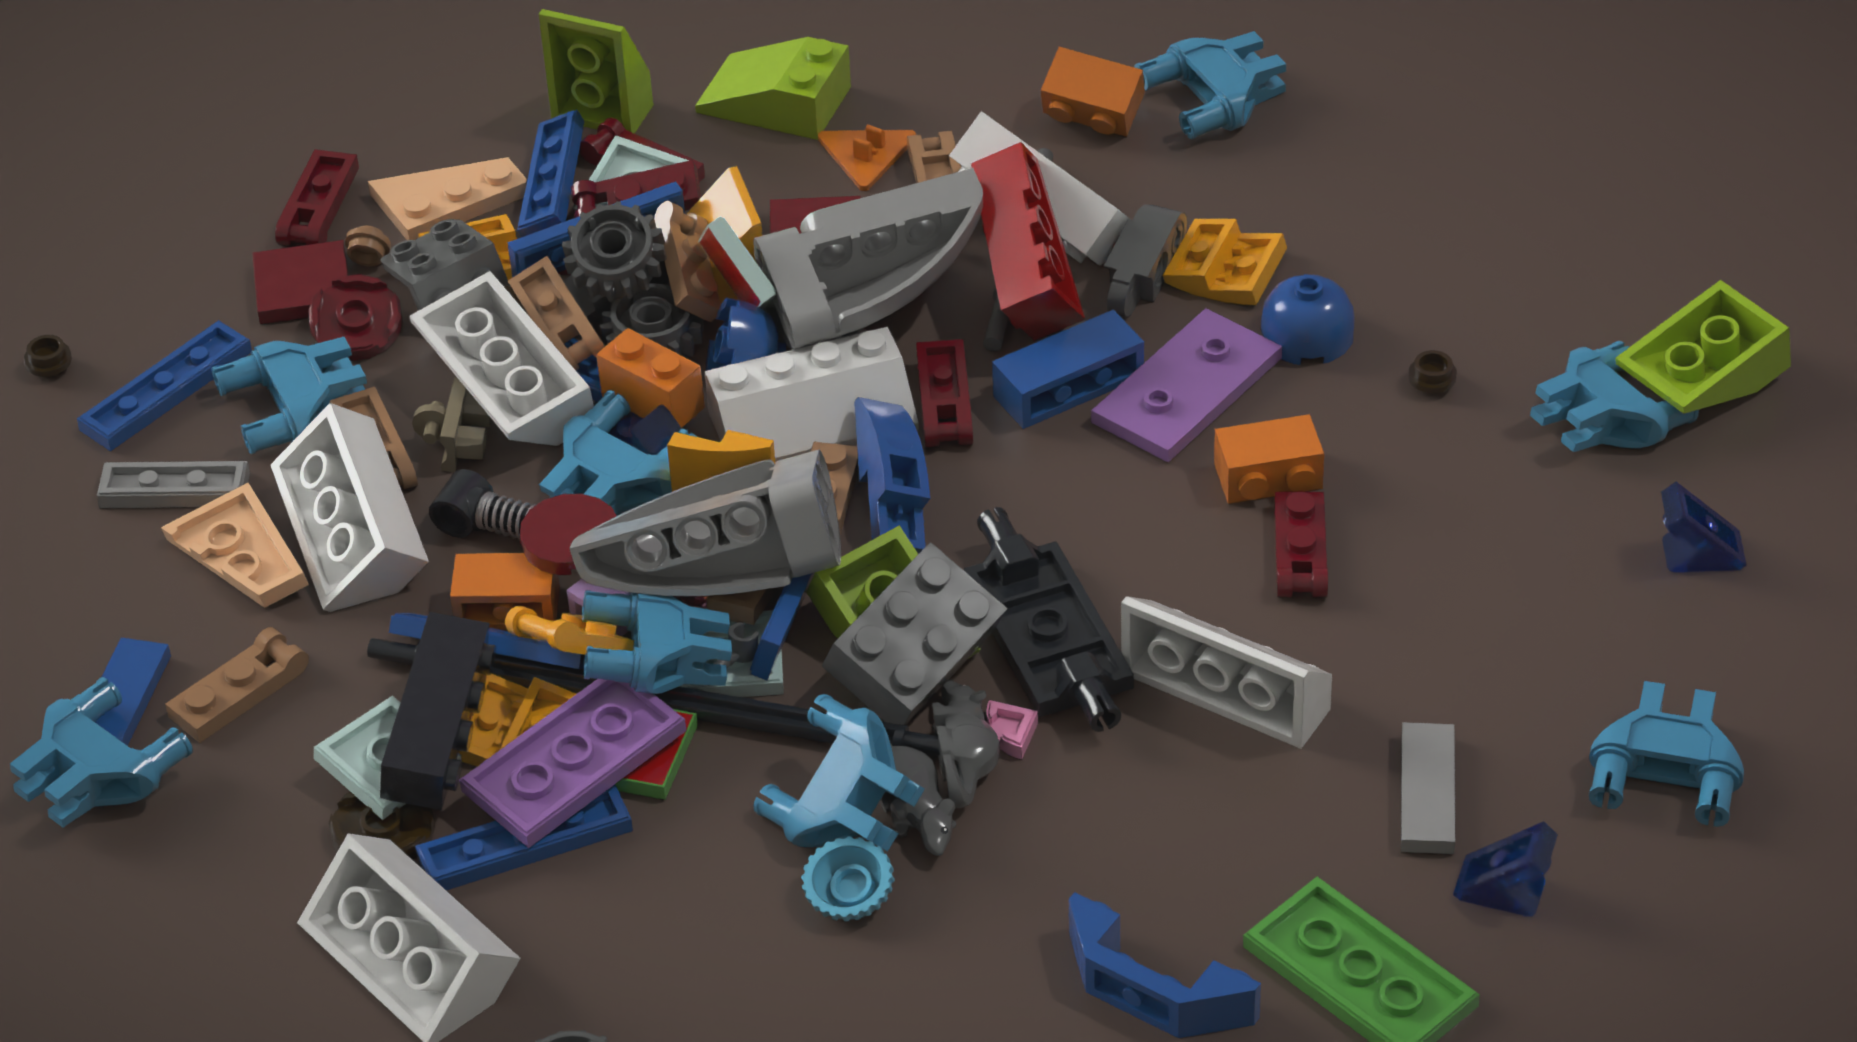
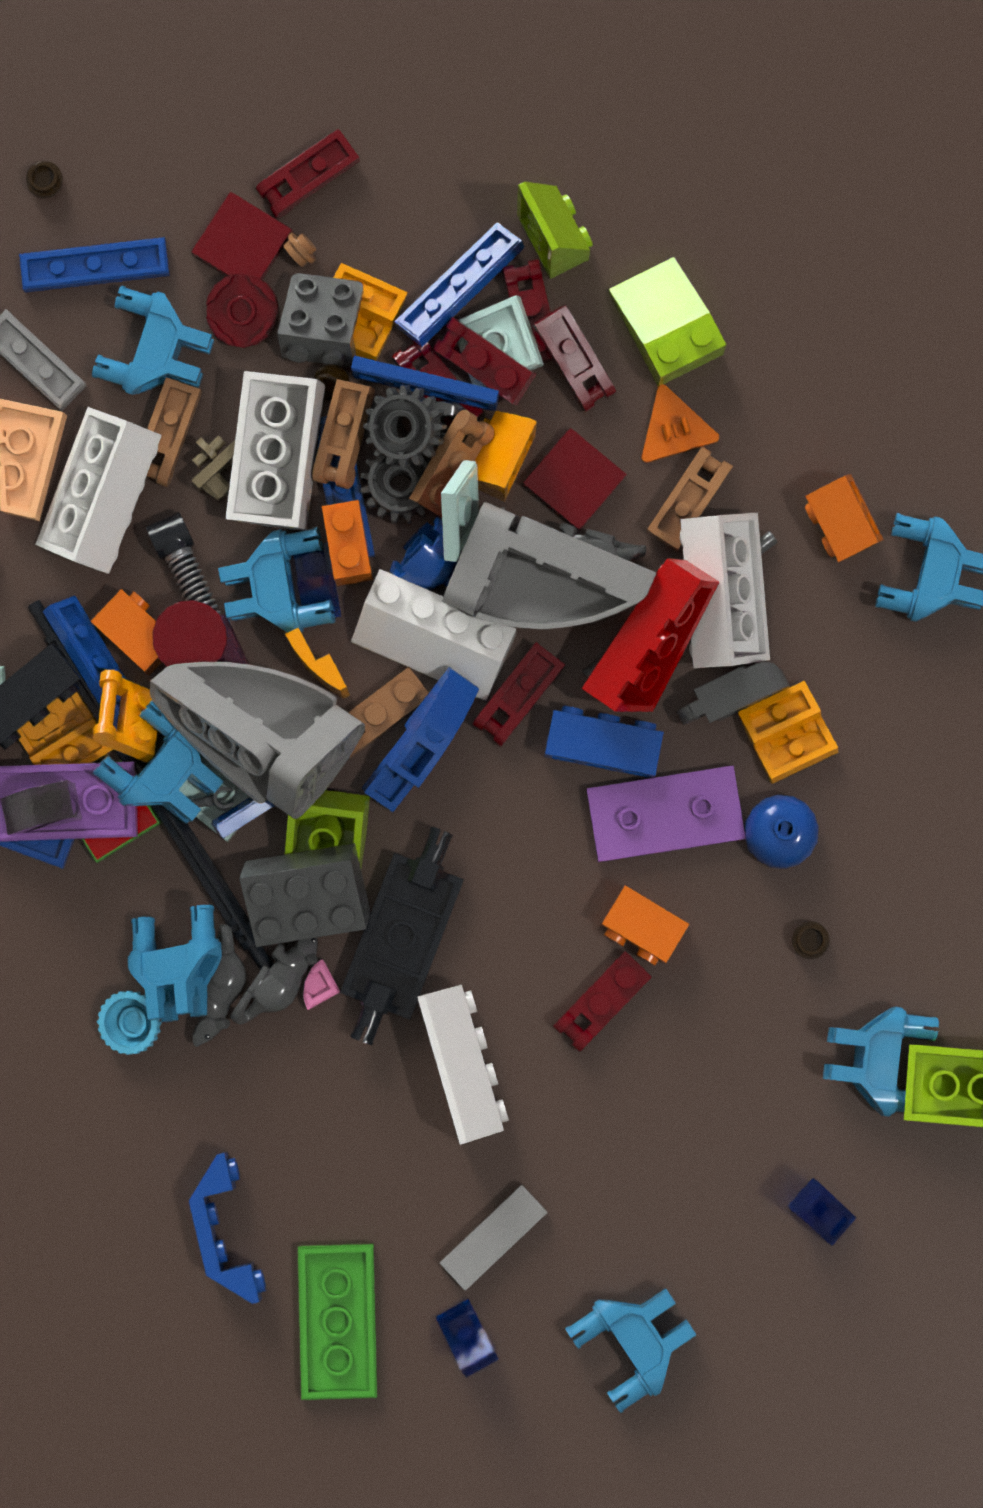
camera: 40 degrees right, 40 degrees up
(456, 192) = (389, 239): light nougat wing -> none
(559, 746) = (41, 807): none -> clear smoke slope
(720, 146) = (574, 357): none -> plate

